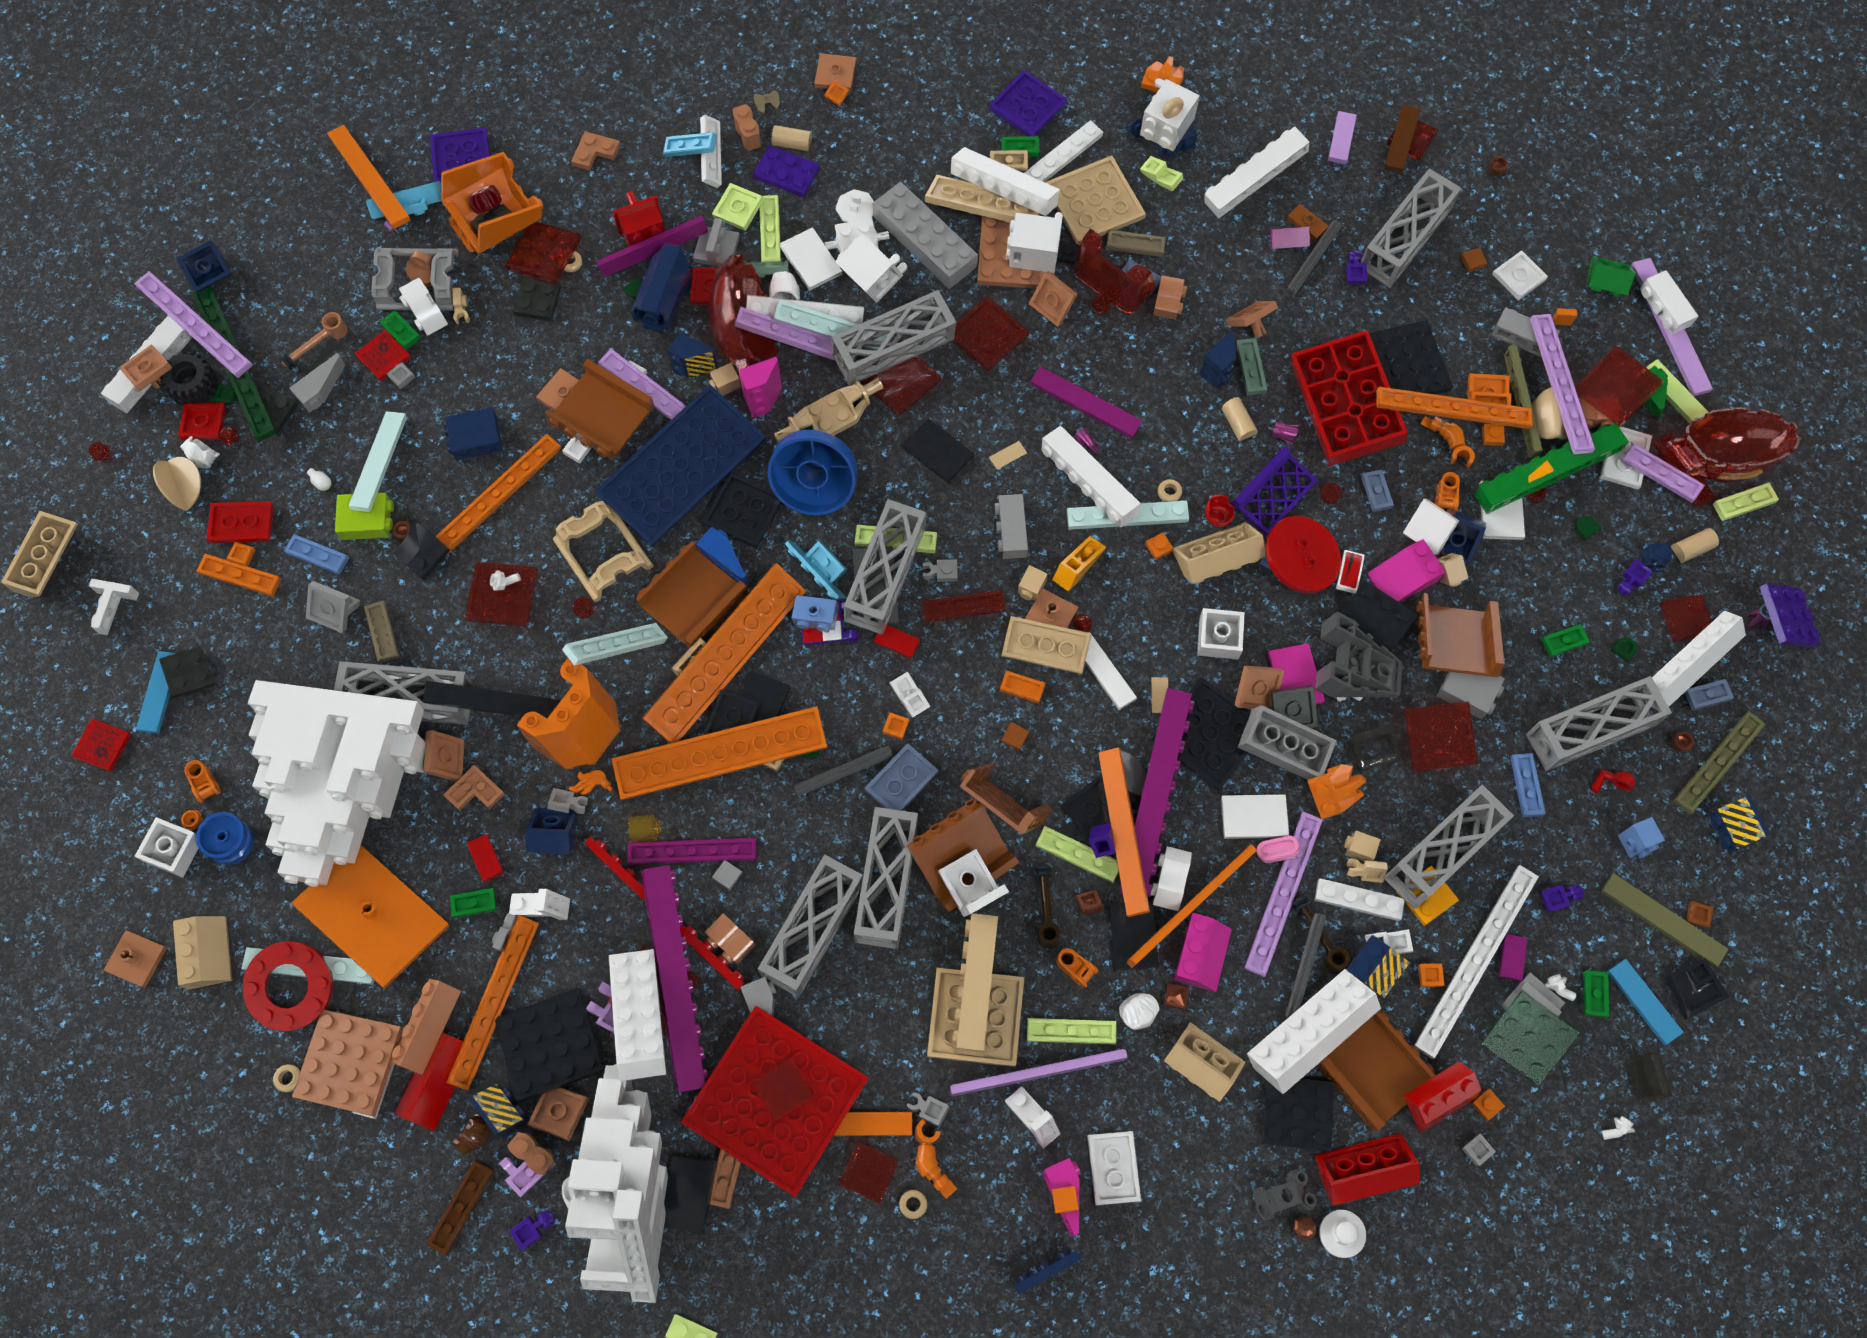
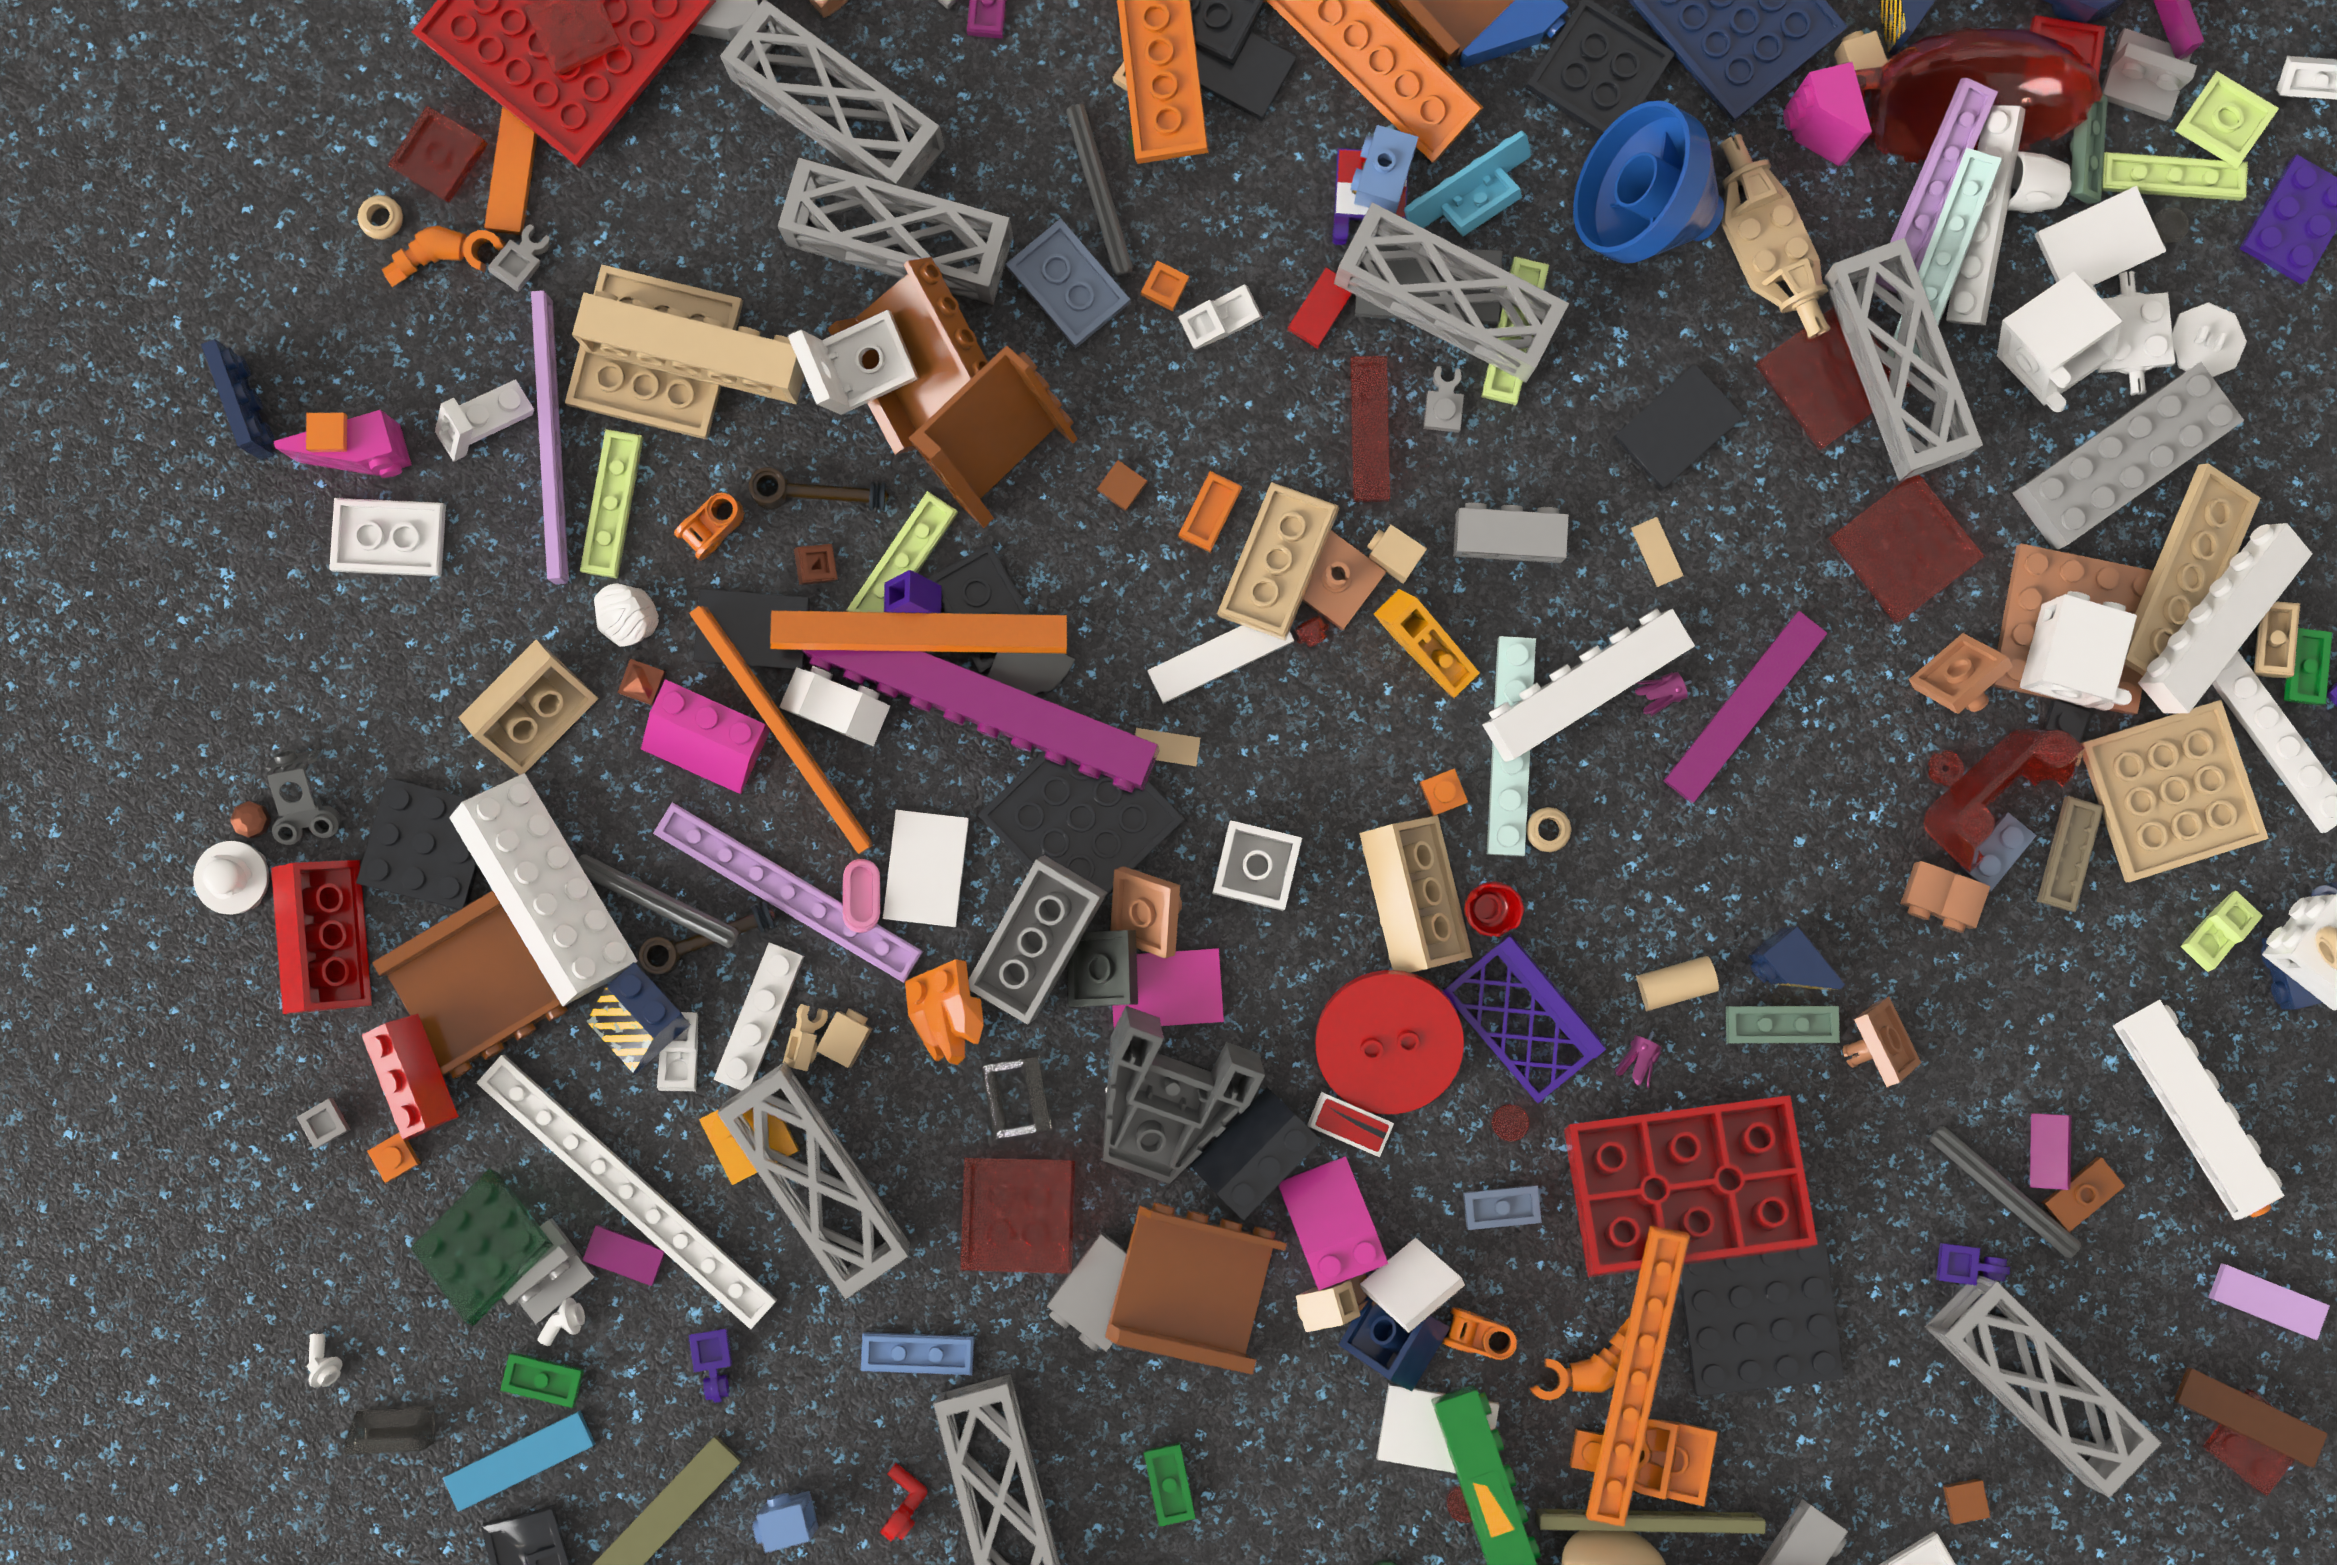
camera: 95 degrees right, 15 degrees up
(1431, 975) = (613, 1108): orange plate -> none

